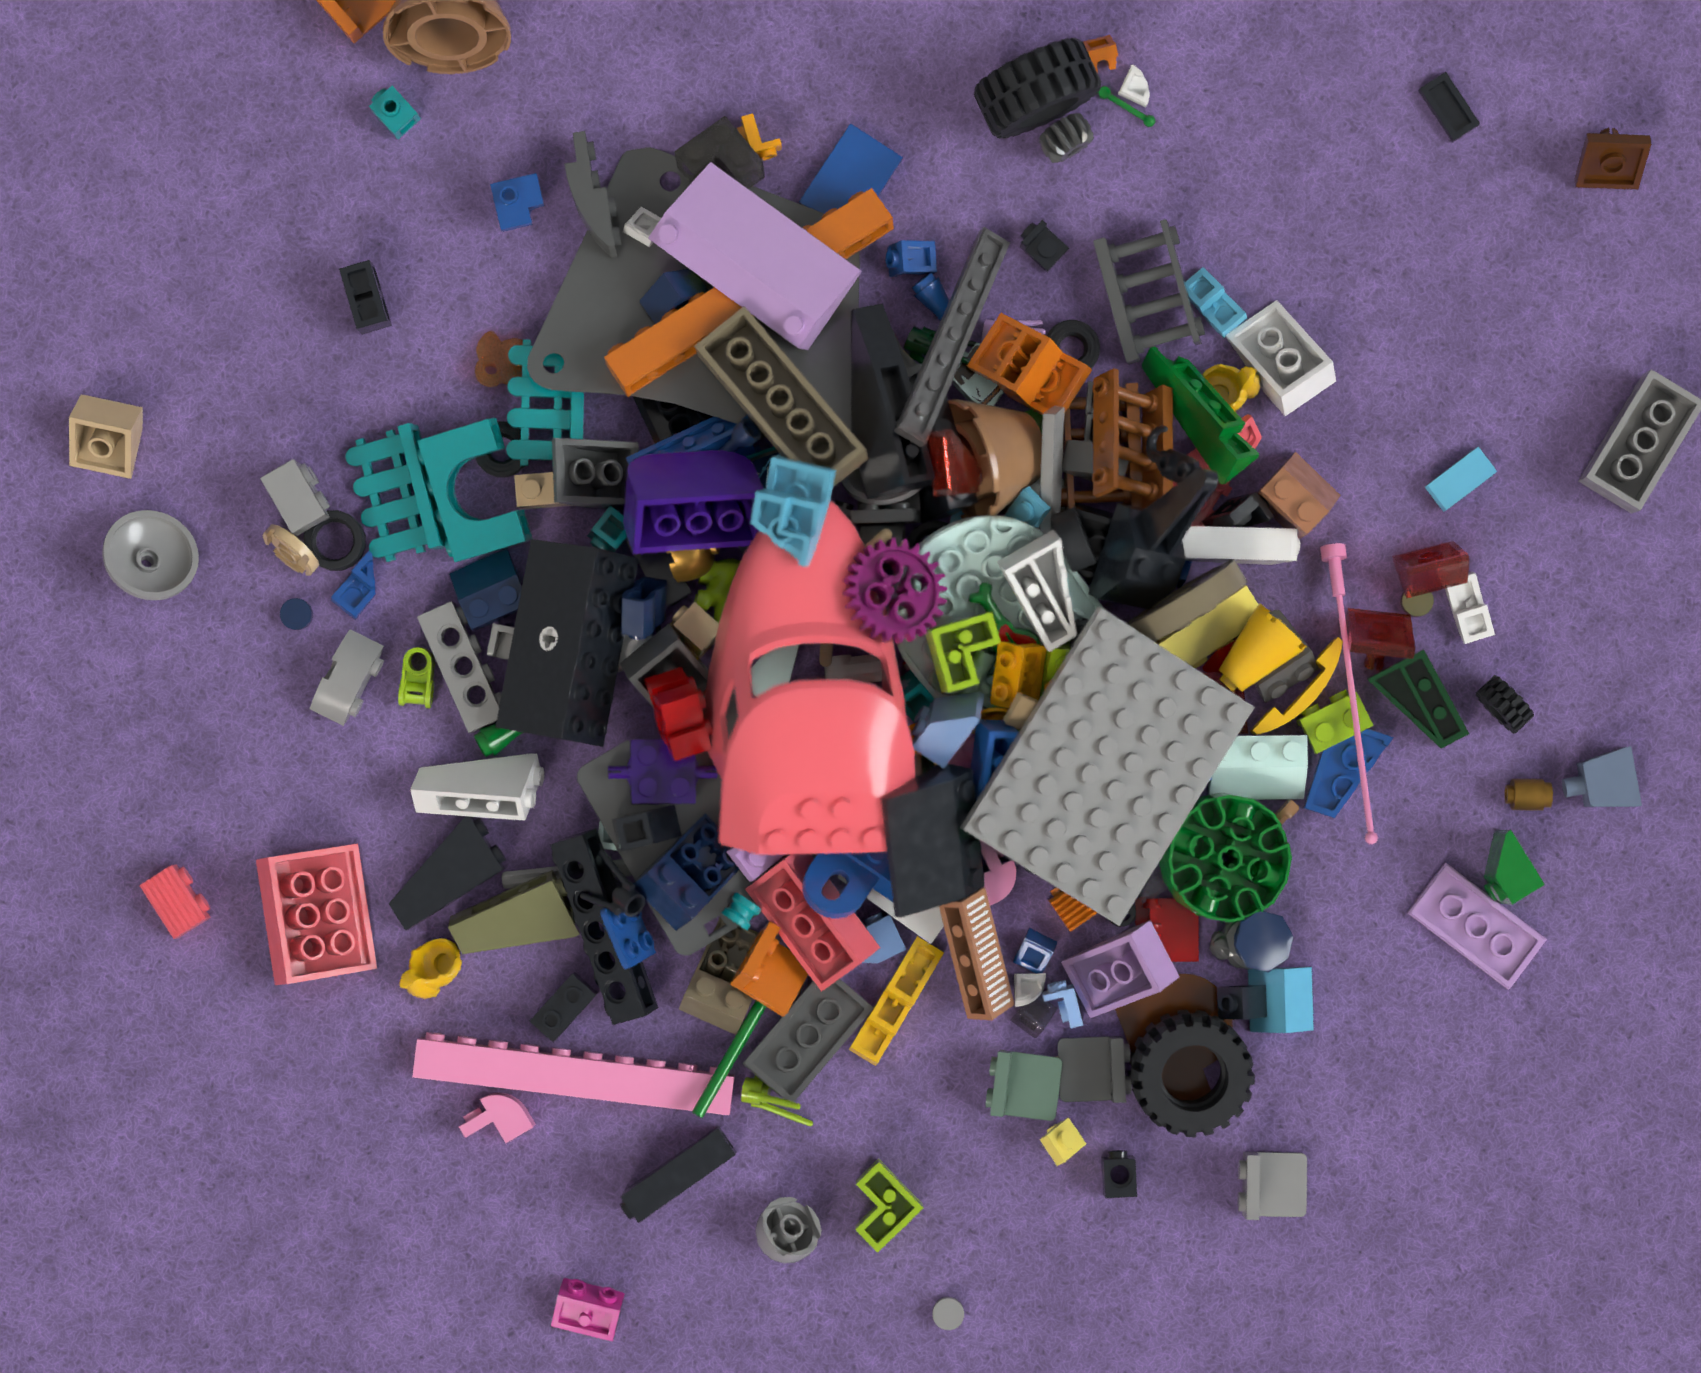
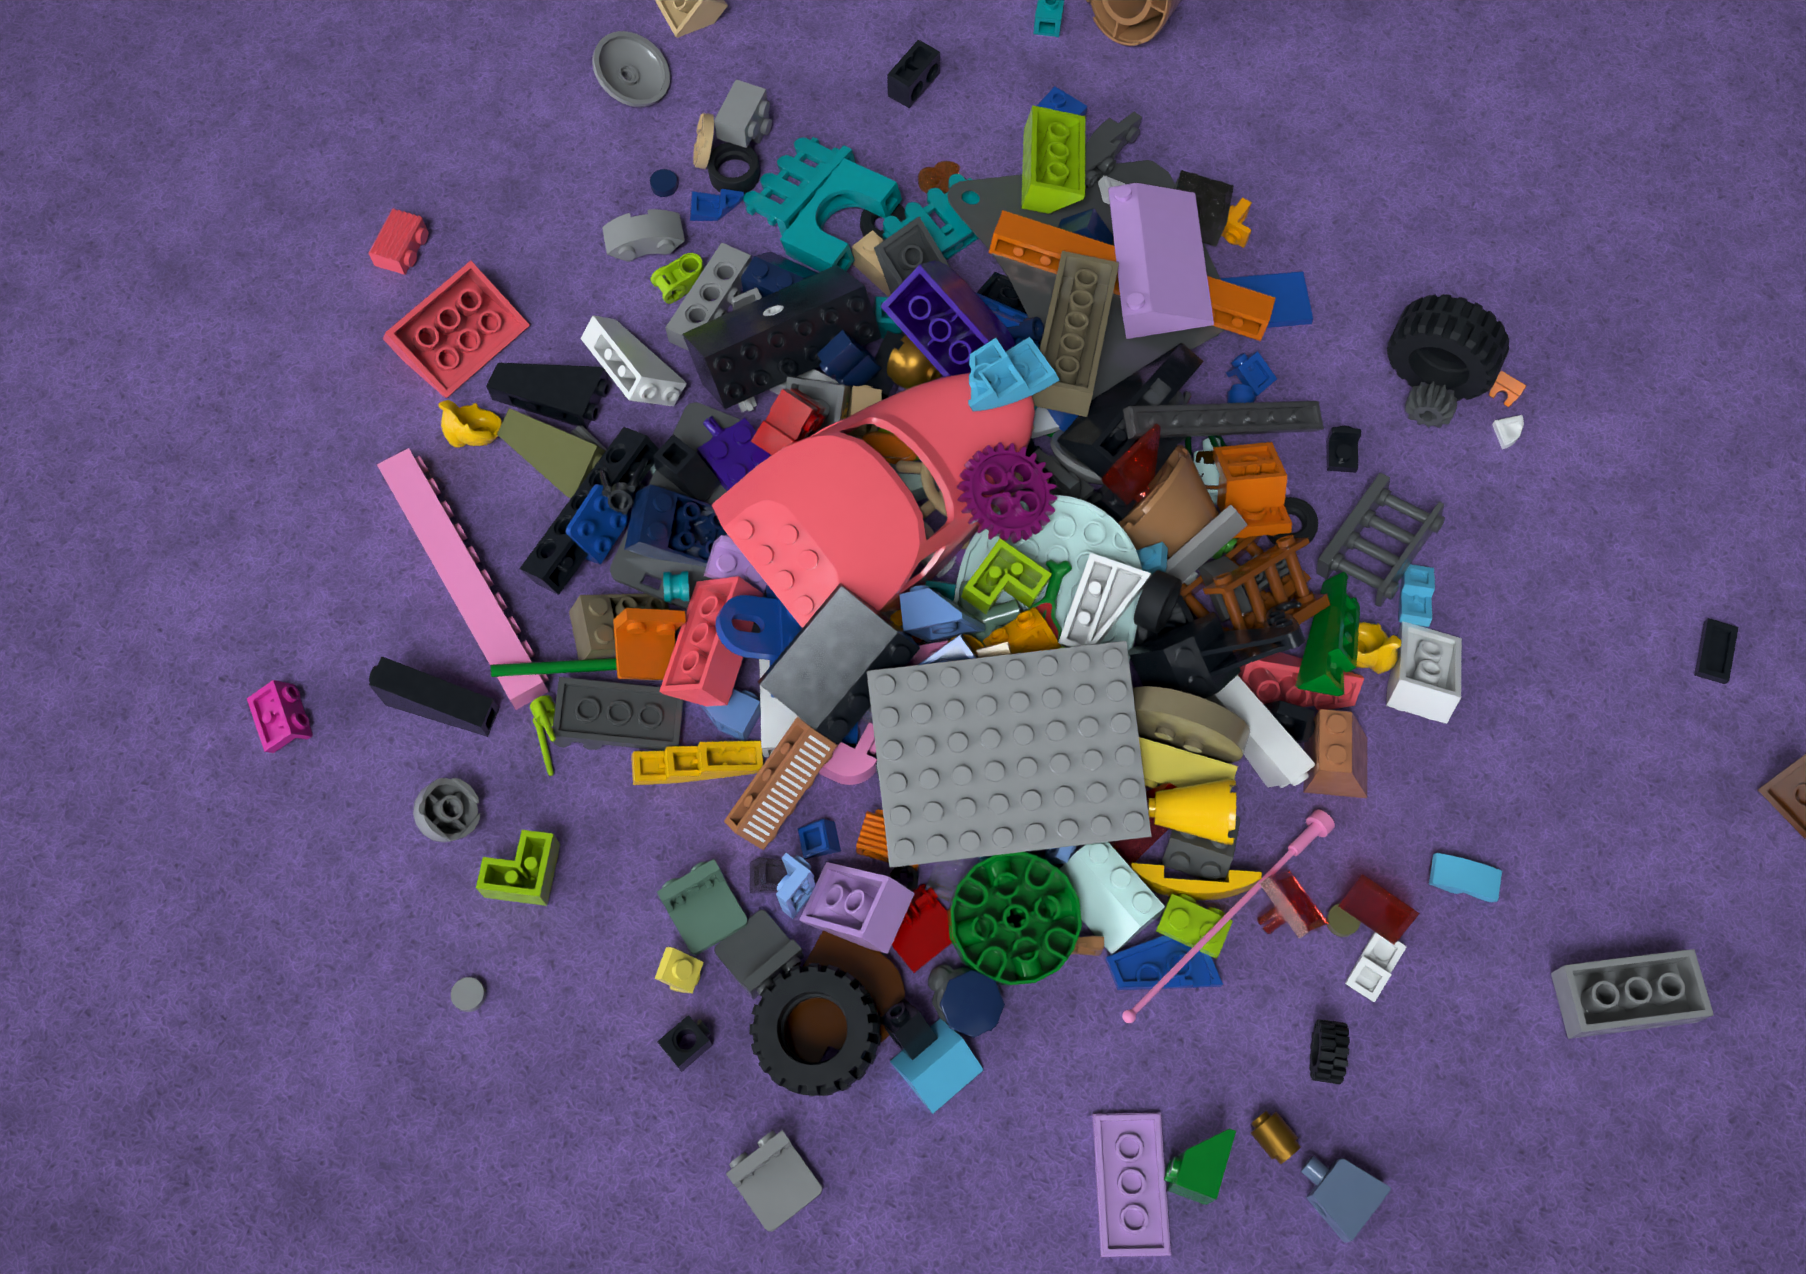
camera: 55 degrees right, 20 degrees down
(493, 739) = (676, 354): green cone -> none
(504, 1111) = (394, 551): bright pink brick -> none
(563, 1007) = (508, 530): black brick -> none
(577, 259) = (1053, 160): none -> lime slope
(1028, 987) = (777, 850): white tile -> none
(1105, 93) = (1484, 415): green hinge -> none
(1422, 697) = (1275, 977): dark green wedge -> none

